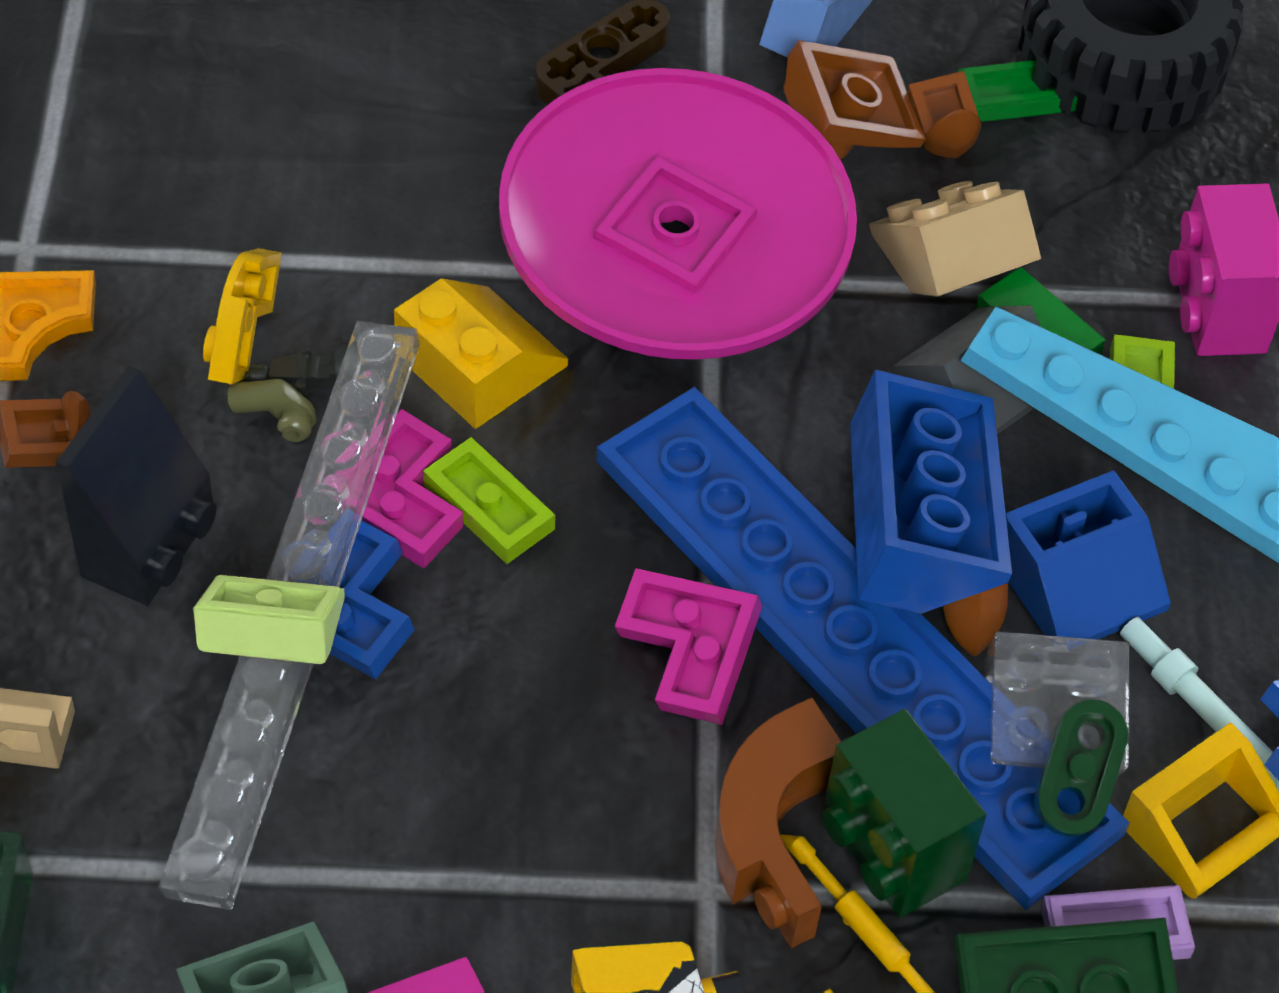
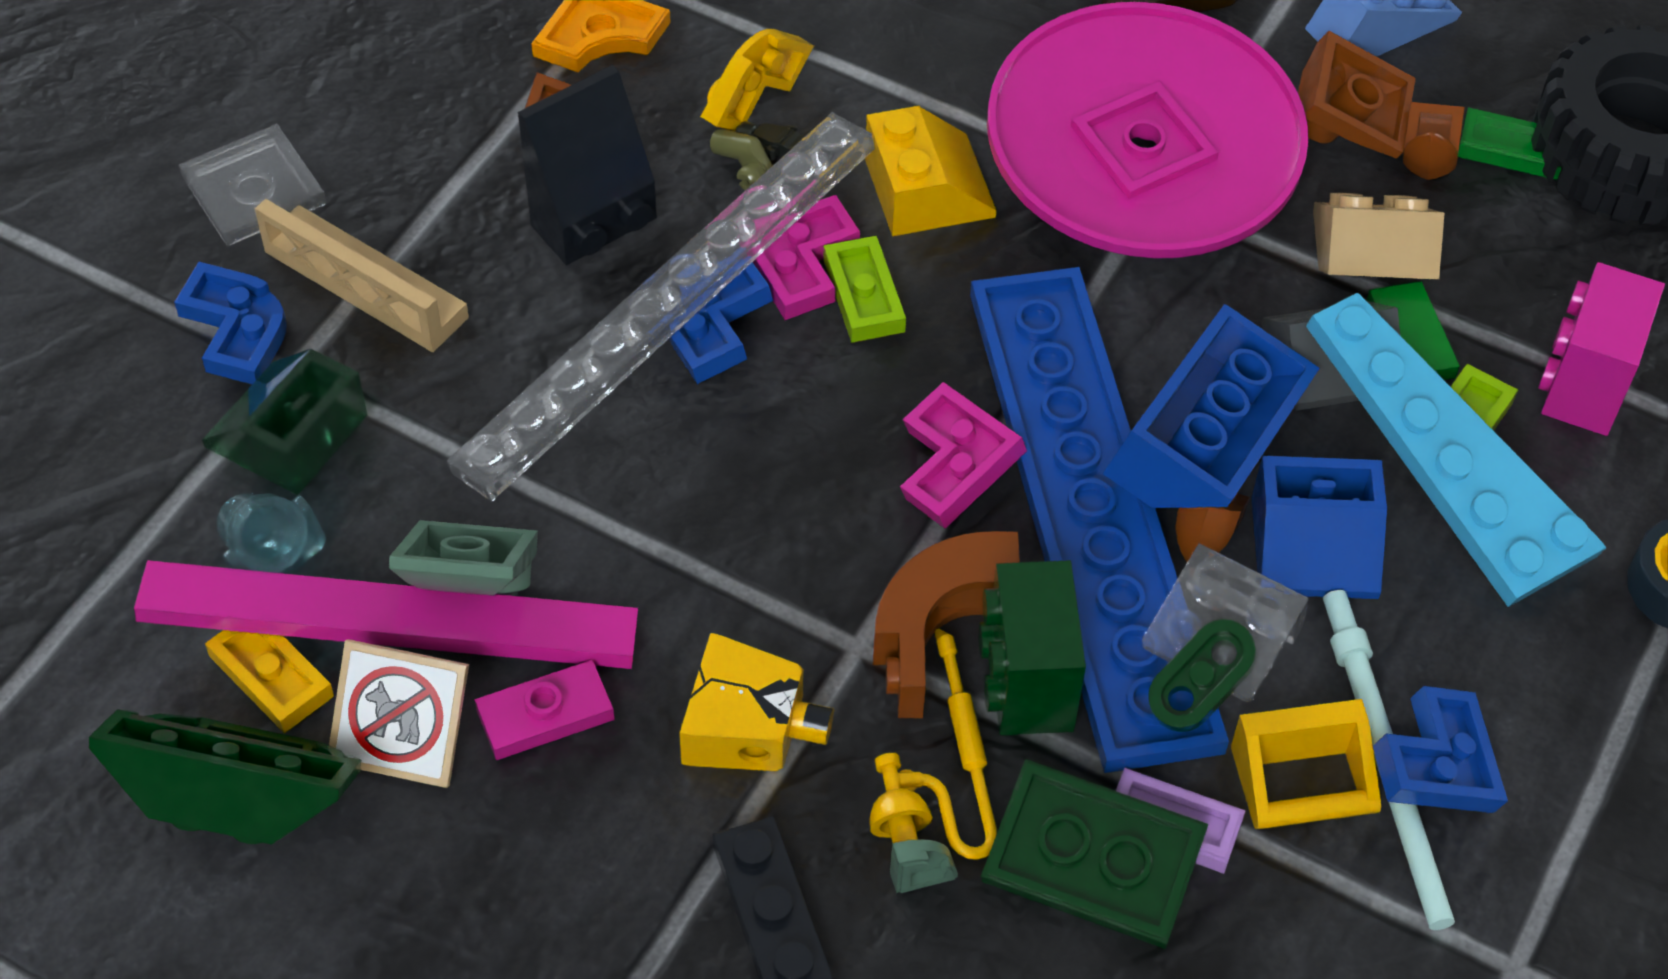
camera: 30 degrees right, 0 degrees up
(268, 619) = (630, 299): yellowish green slope -> none

